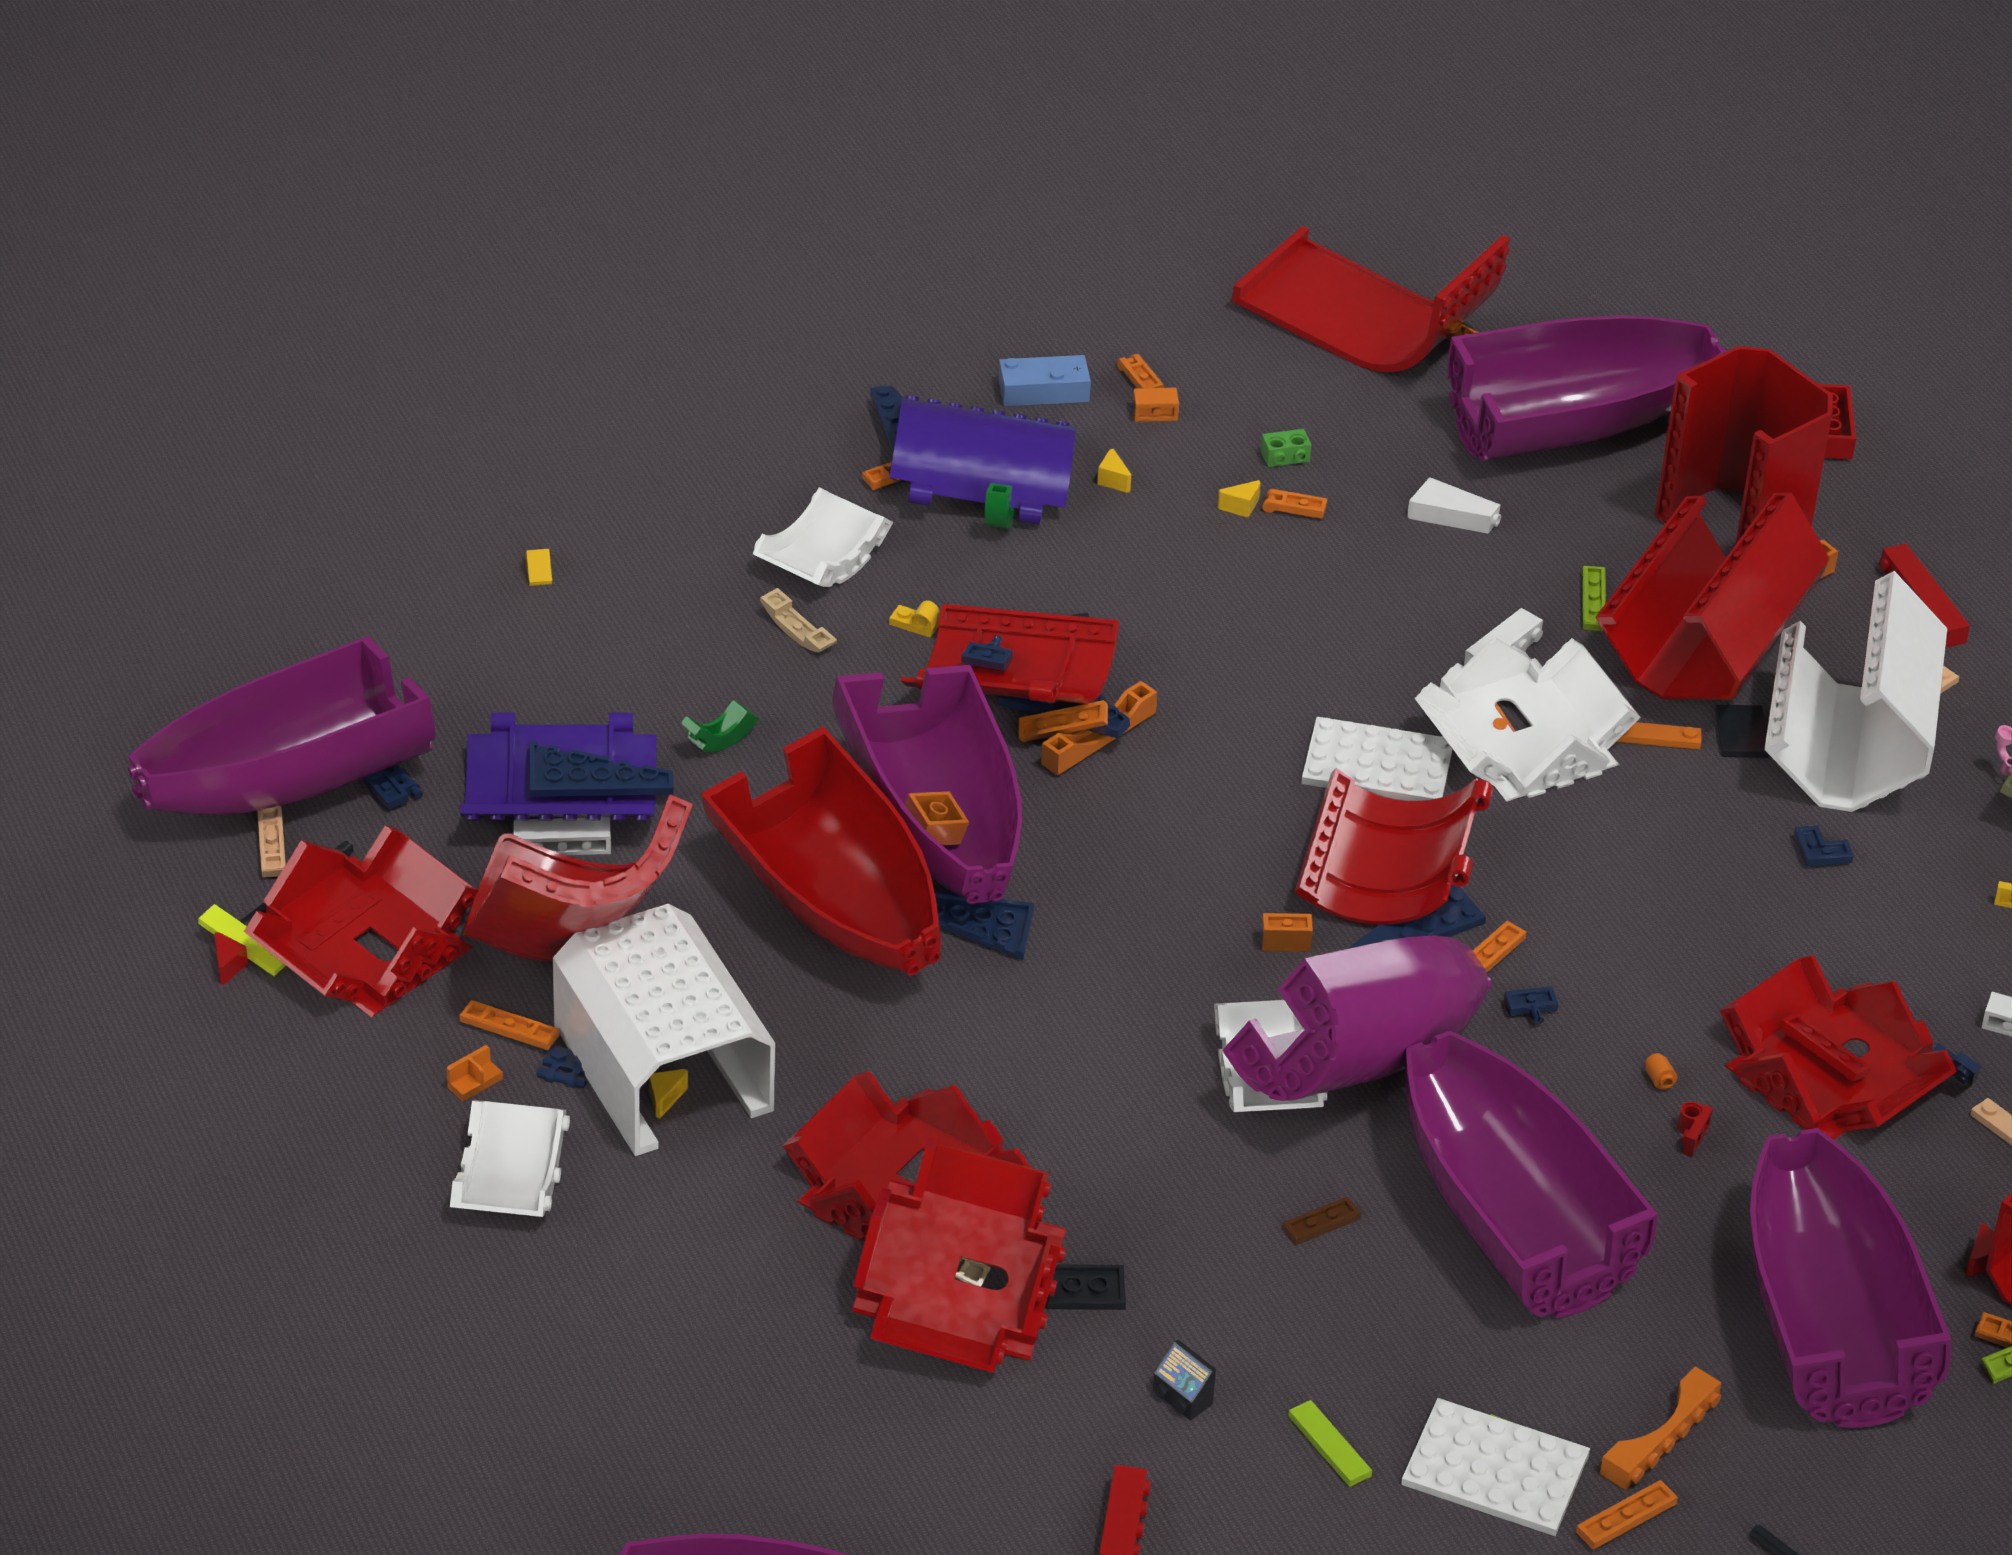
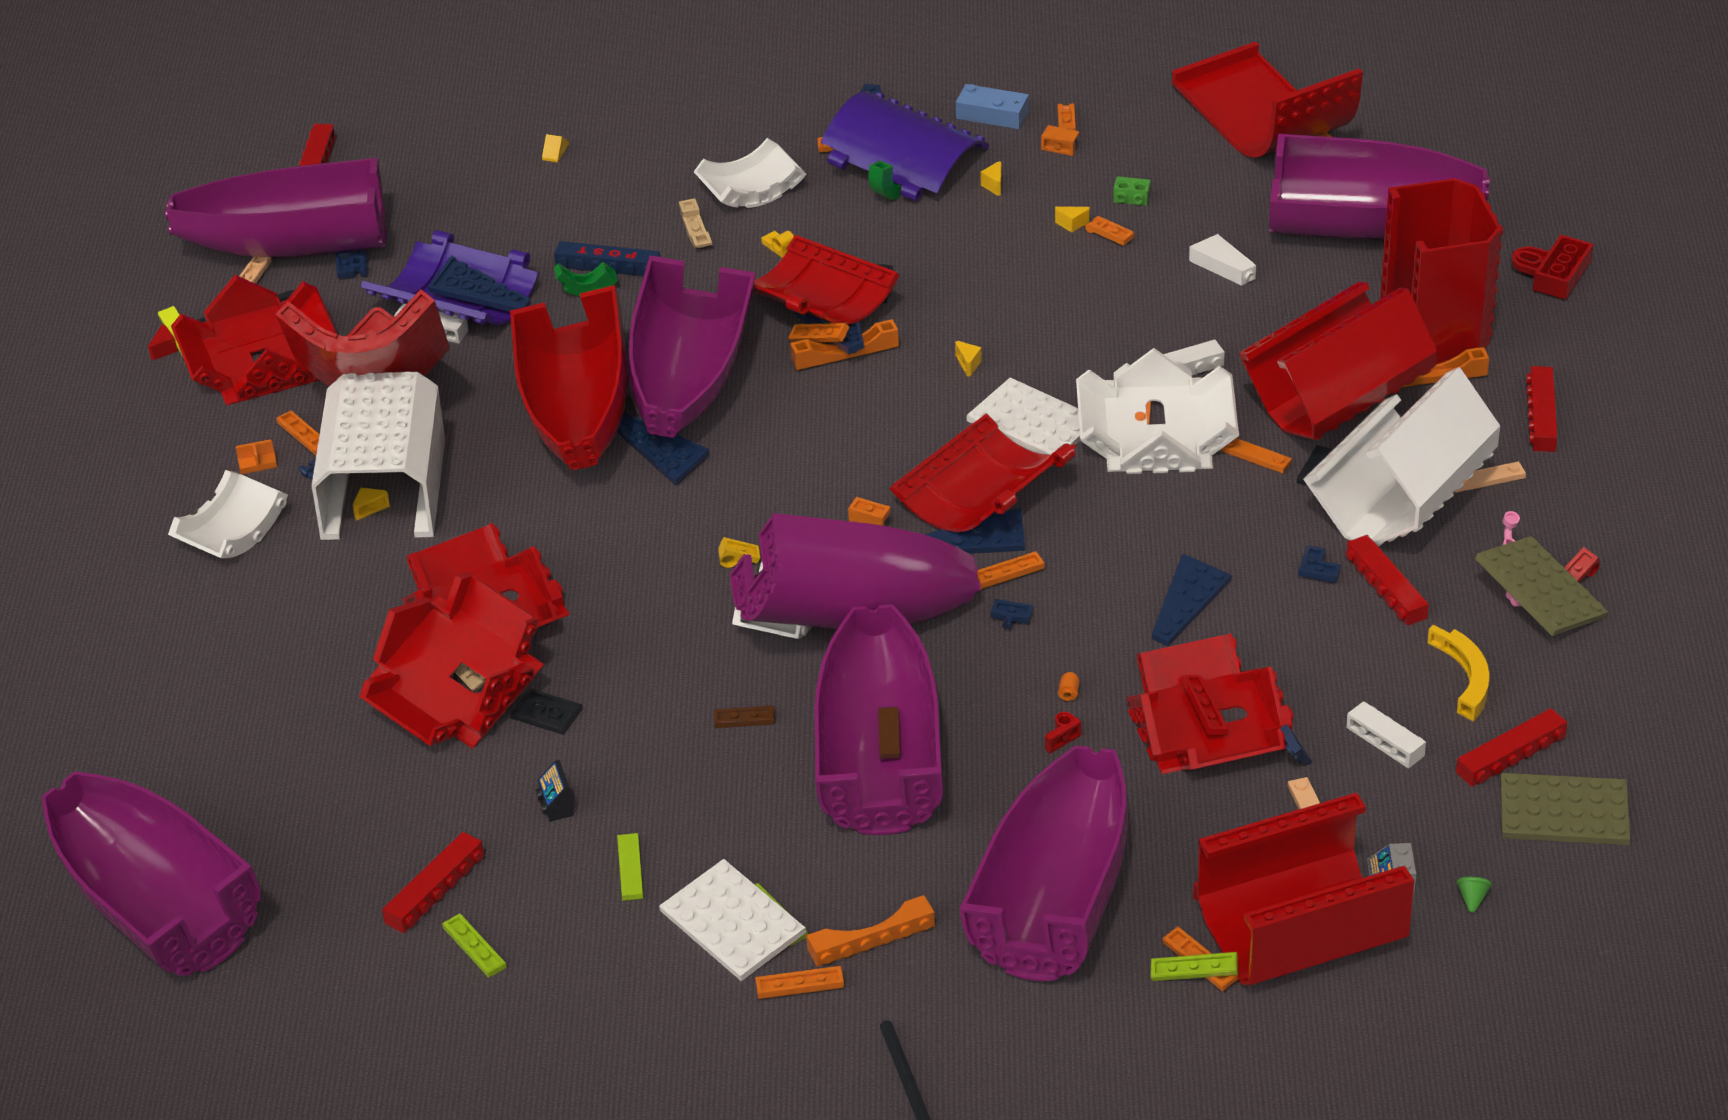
camera: 30 degrees right, 0 degrees up
(229, 646) = (319, 145): none -> red brick
(716, 694) = (590, 256): none -> dark blue brick
(938, 816) = (675, 373): orange brick -> none
(988, 655) = (801, 276): dark blue plate -> none
(1161, 1022) = (732, 550): none -> yellow plate
(1249, 704) = (968, 356): none -> yellow slope
(1511, 1188) = (888, 732): none -> reddish brown tile
(1707, 924) = (1189, 594): none -> dark blue wing
(1907, 843) = (1387, 580): none -> red brick

